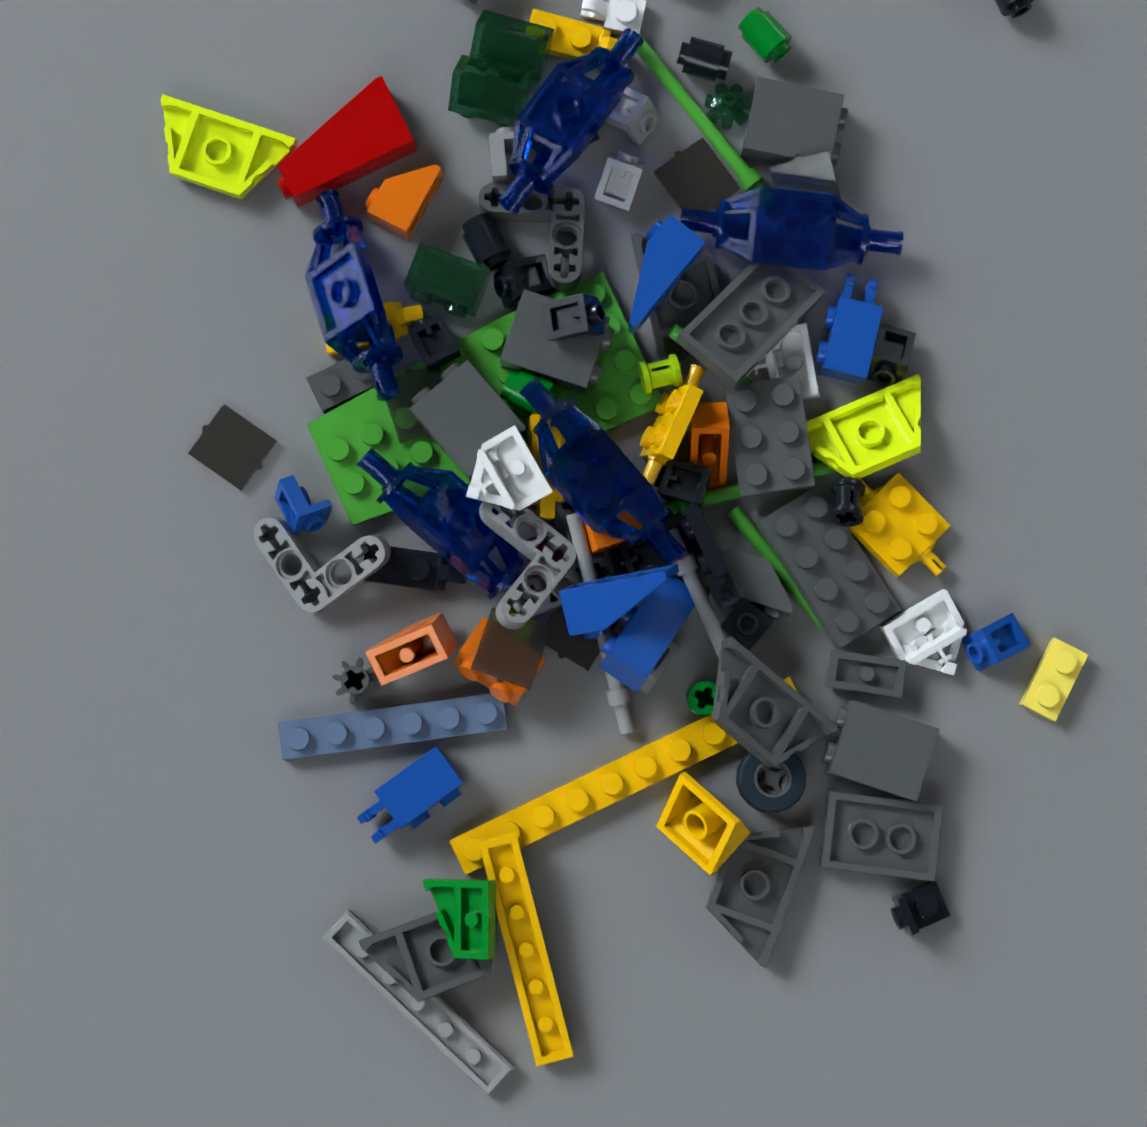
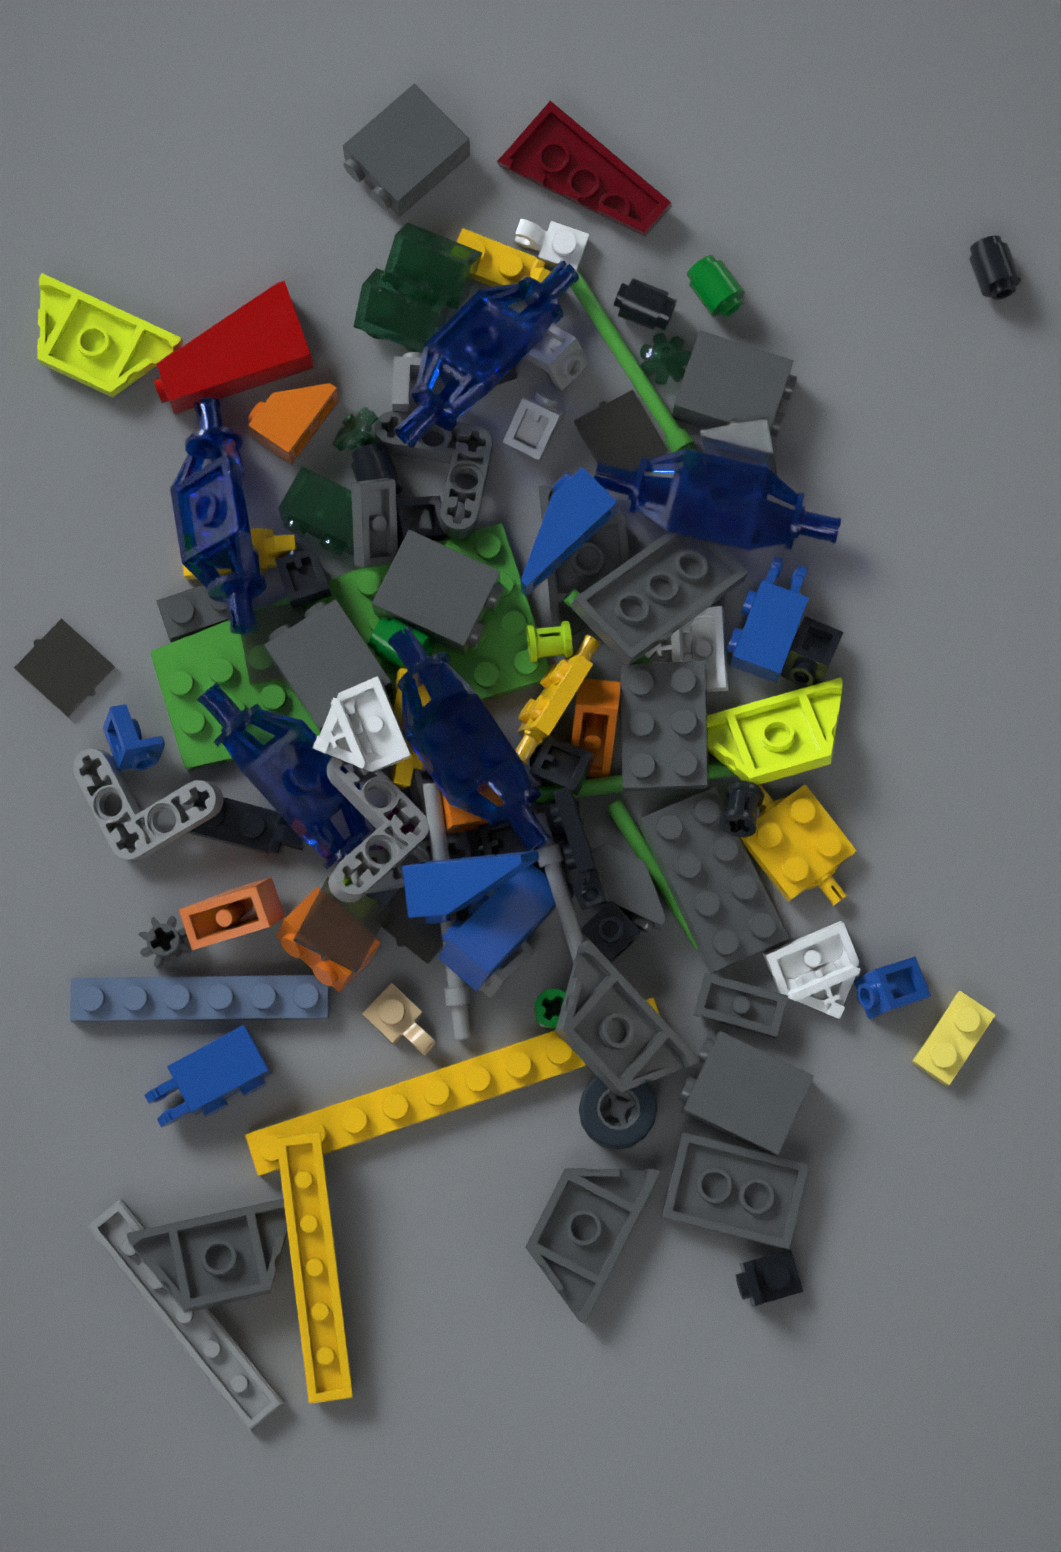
camera: 10 degrees right, 5 degrees down
(463, 204) = (357, 430): none -> clear green plant
(466, 915) = (251, 1219): green wing -> none
(492, 286) = (374, 522): none -> dark grey plate
(567, 720) = (397, 1017): none -> tan plate
(573, 317) = (459, 565): black bracket -> none
(701, 824) = (531, 1150): yellow slope -> none

